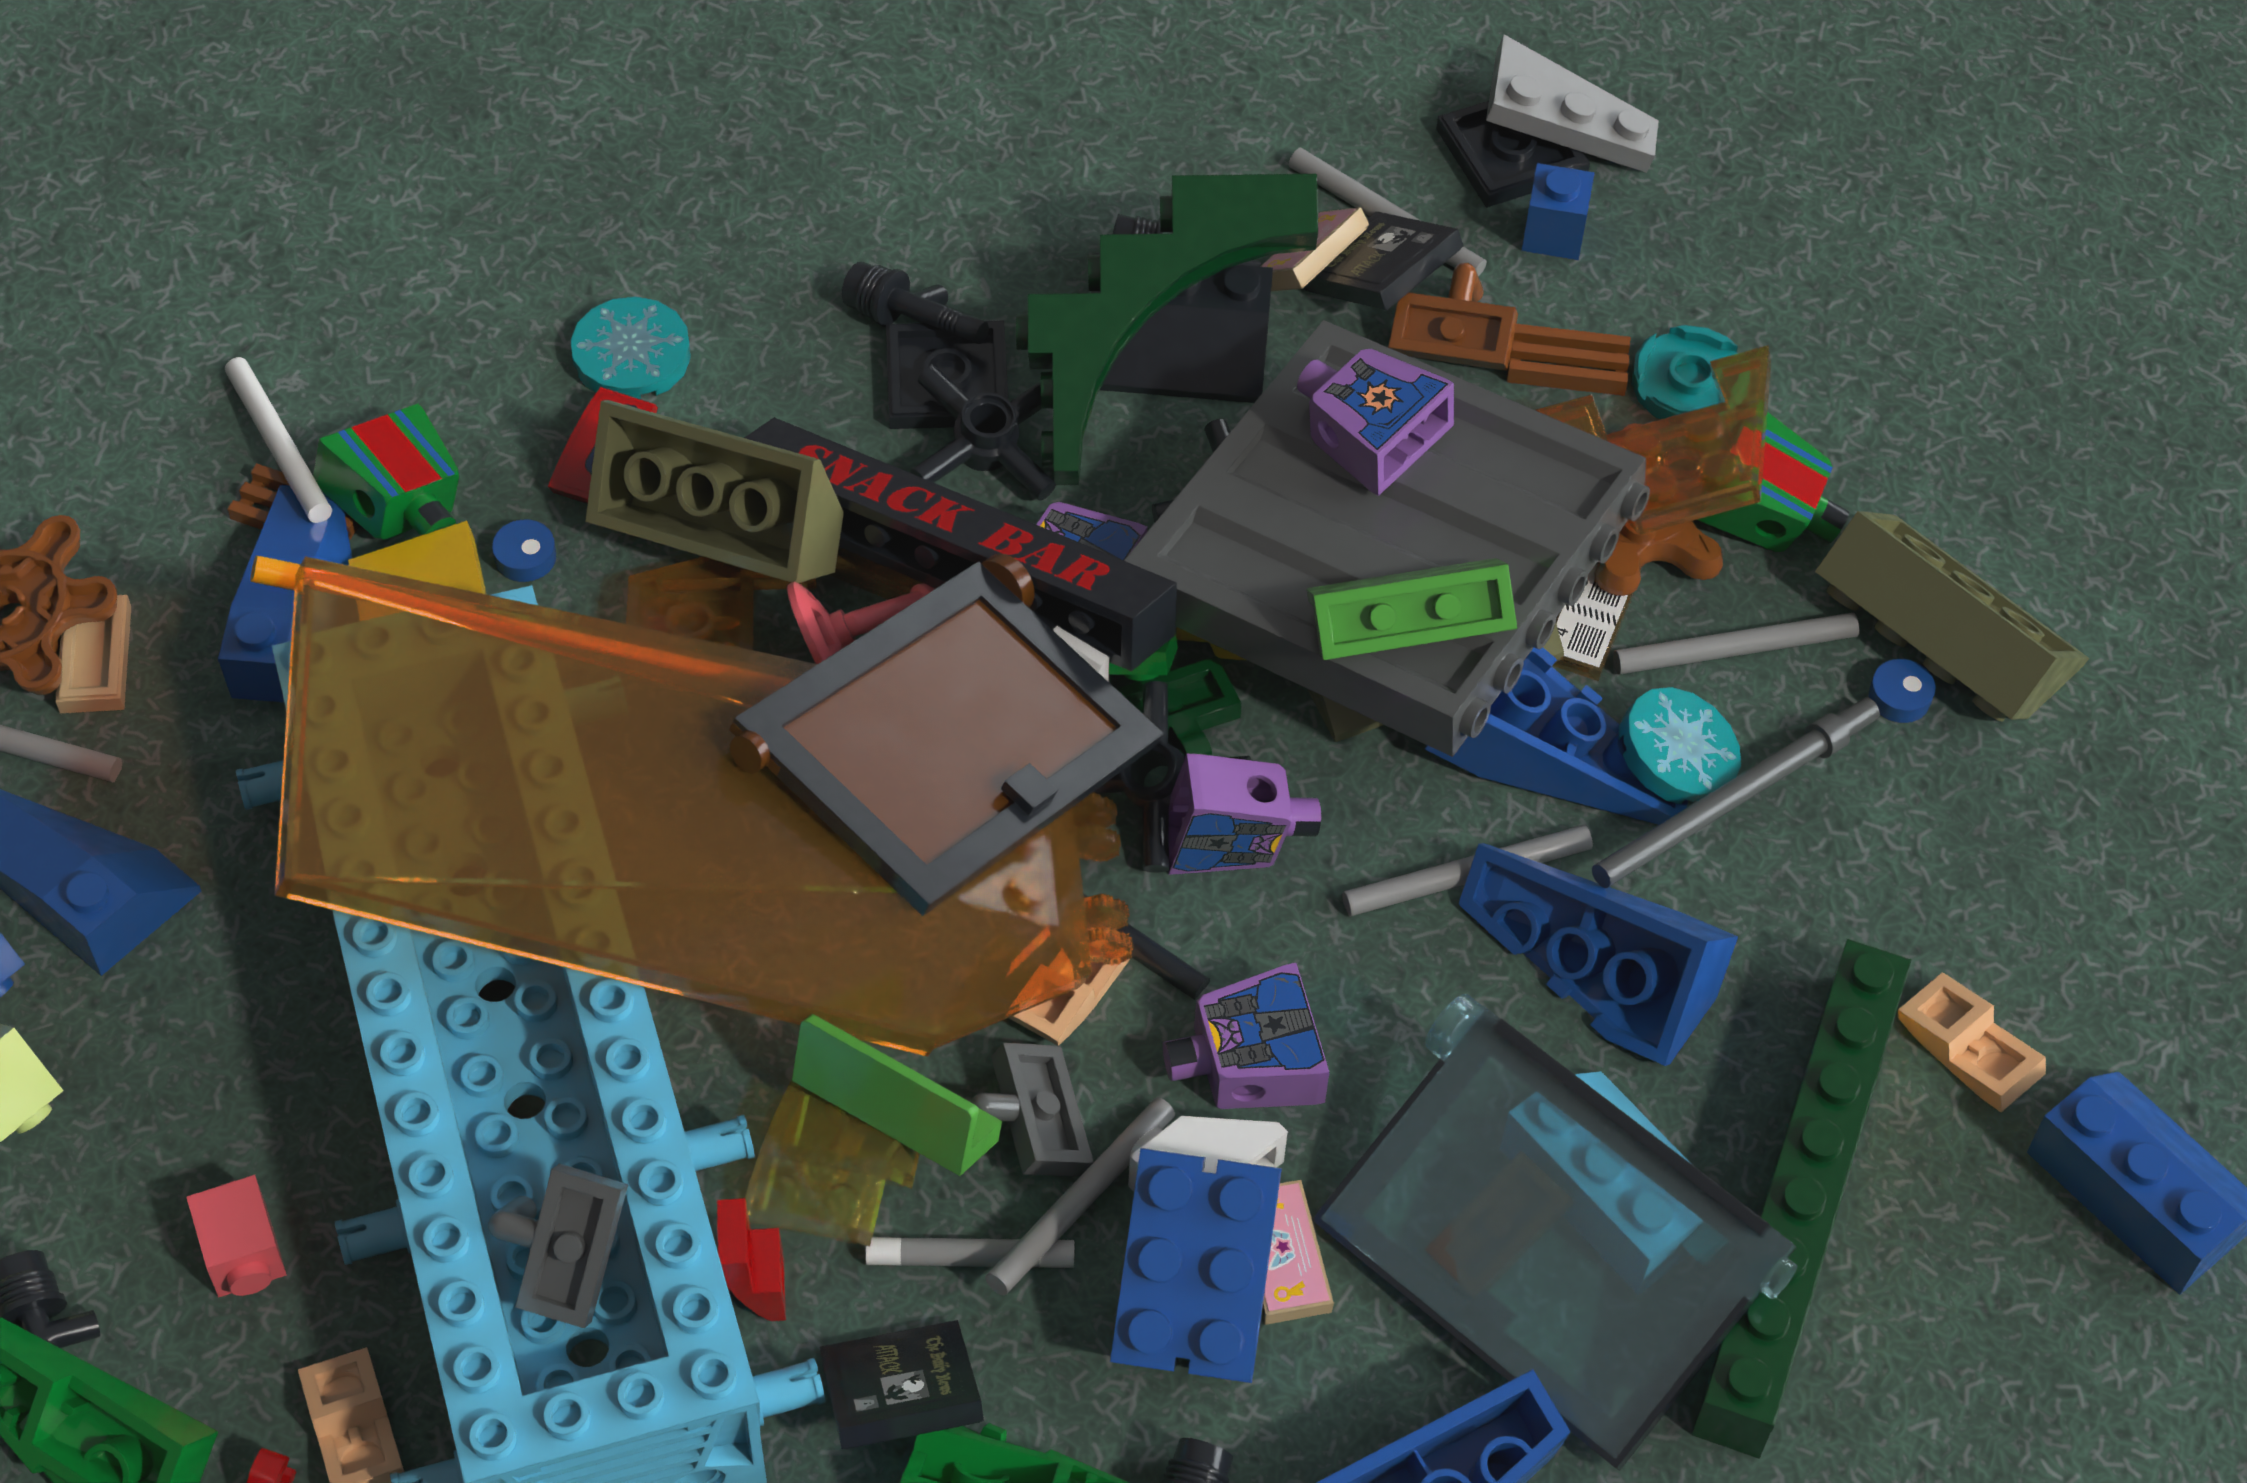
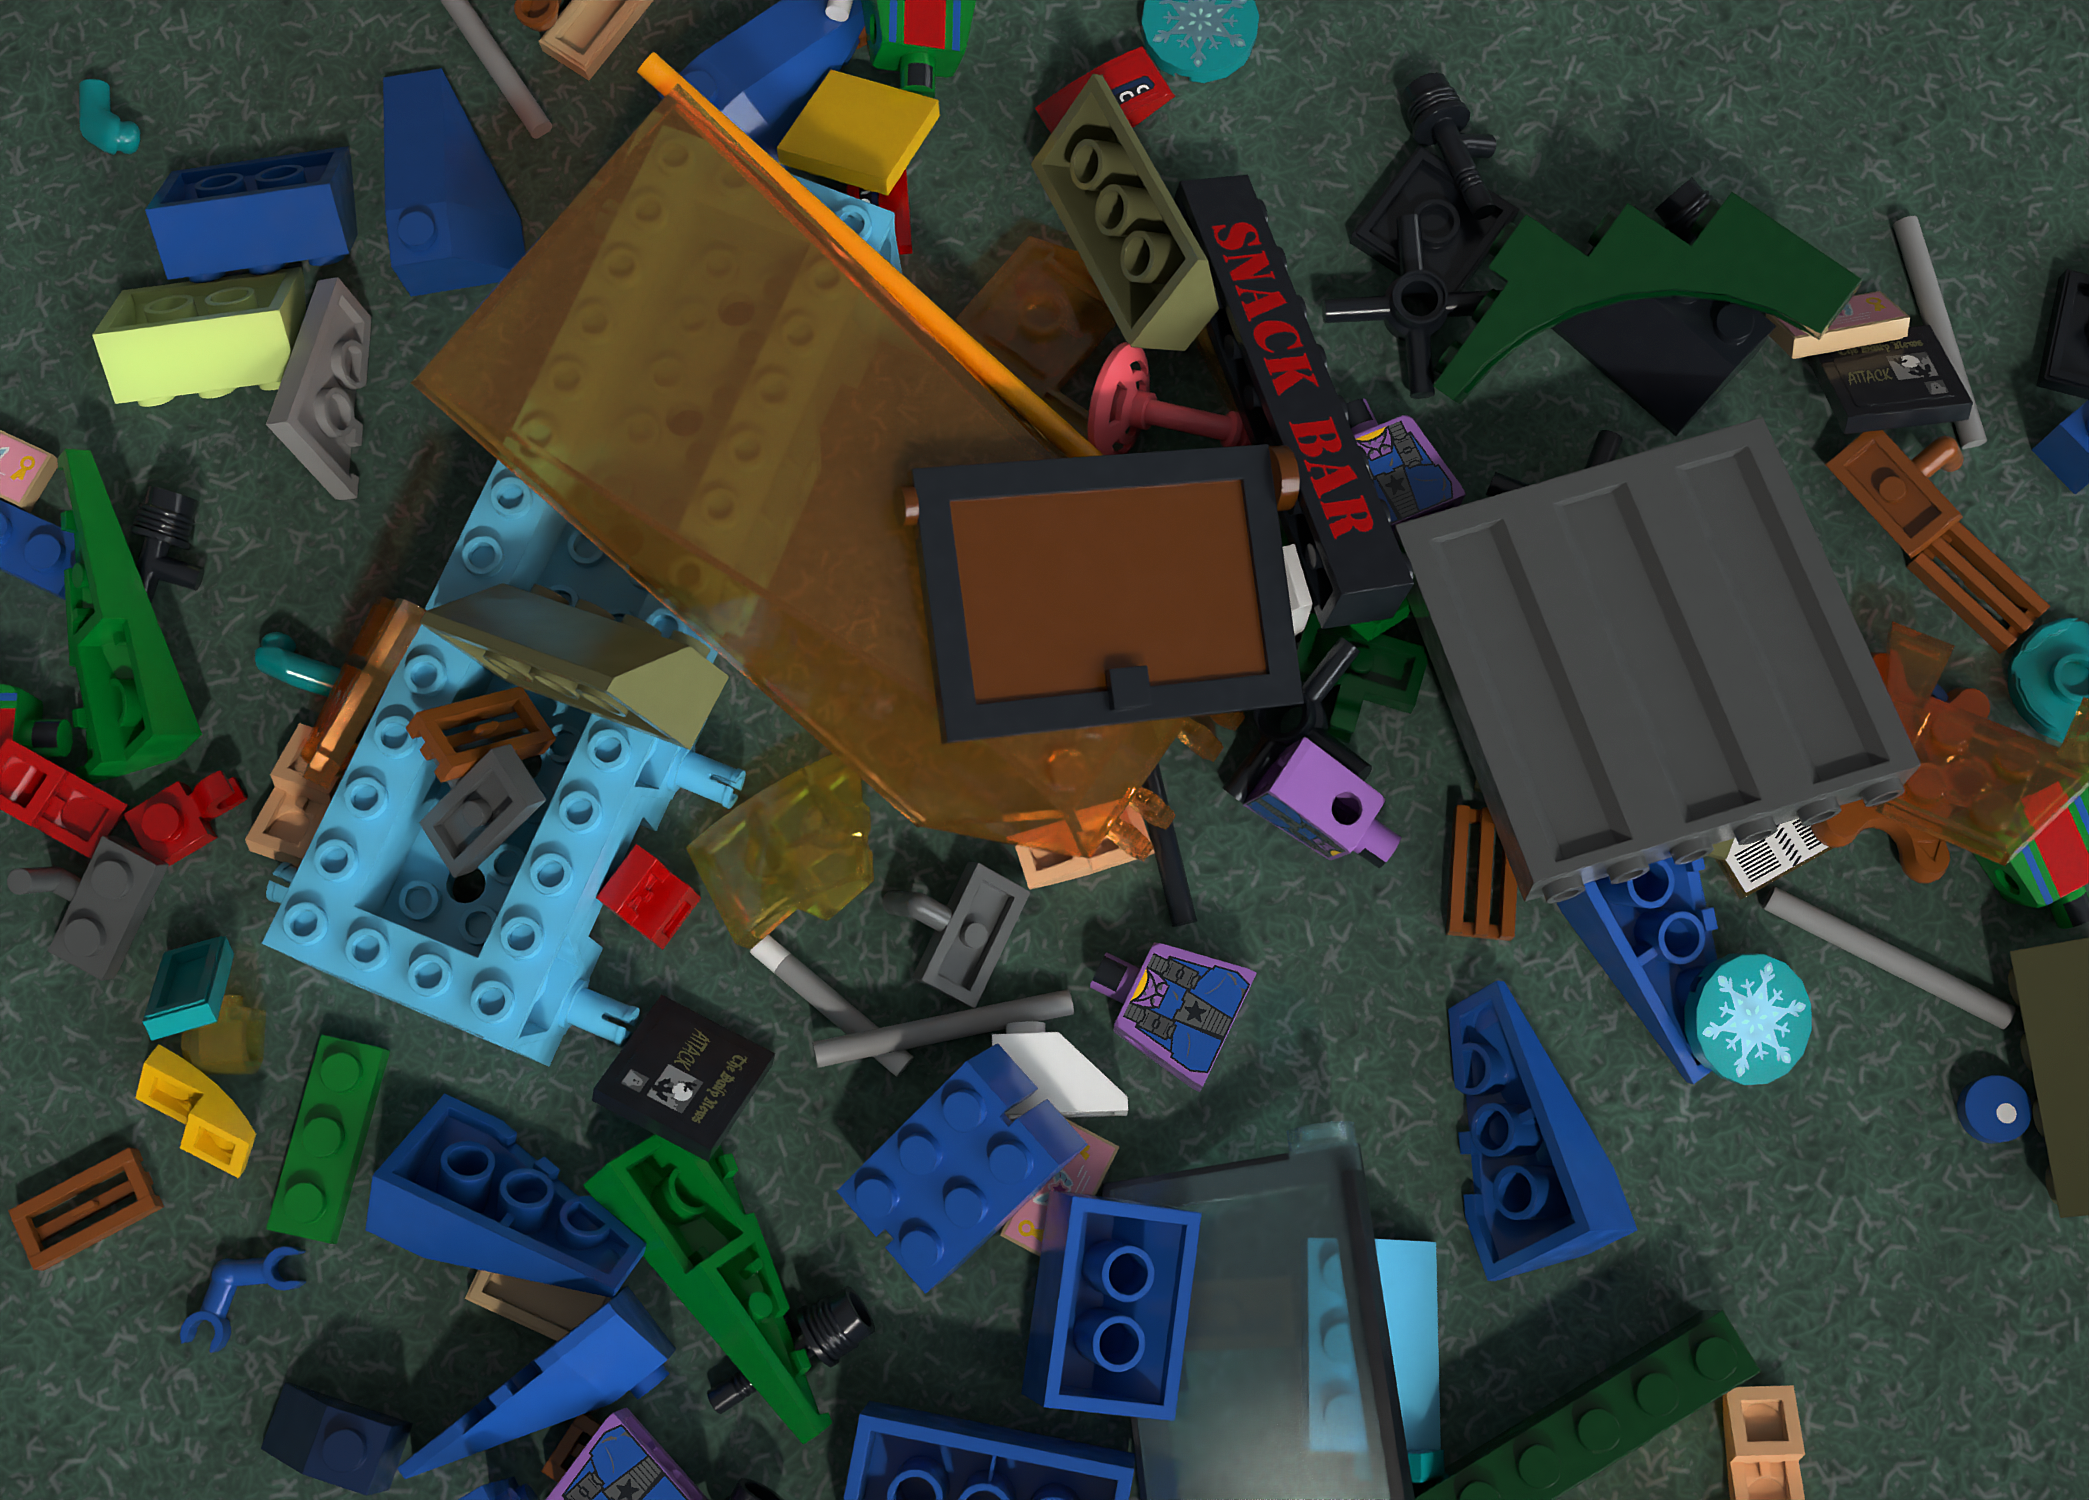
camera: 45 degrees right, 20 degrees up
(90, 1076) = (319, 387): none -> light grey wing
(236, 1237) = (331, 588): coral brick -> none
(238, 1331) = (279, 661): none -> teal arm
(358, 1276) = (358, 688): none -> clear orange wing
(524, 550) = (975, 152): blue tile -> none
(524, 1196) = (444, 748): none -> dark orange tile
(576, 1051) = (586, 658): none -> olive slope
(892, 1097) = (854, 853): bright green panel -> none
(1369, 751) = (1508, 889): none -> dark orange tile
(1376, 414) = (1716, 549): medium lavender torso -> none
(1400, 1285) = (1111, 1306): none -> blue slope
(1413, 608) = (1586, 757): bright green panel -> none
(1455, 872) = (1469, 982): light grey bar -> none
(1820, 739) = (1881, 1100): dark grey bar -> none

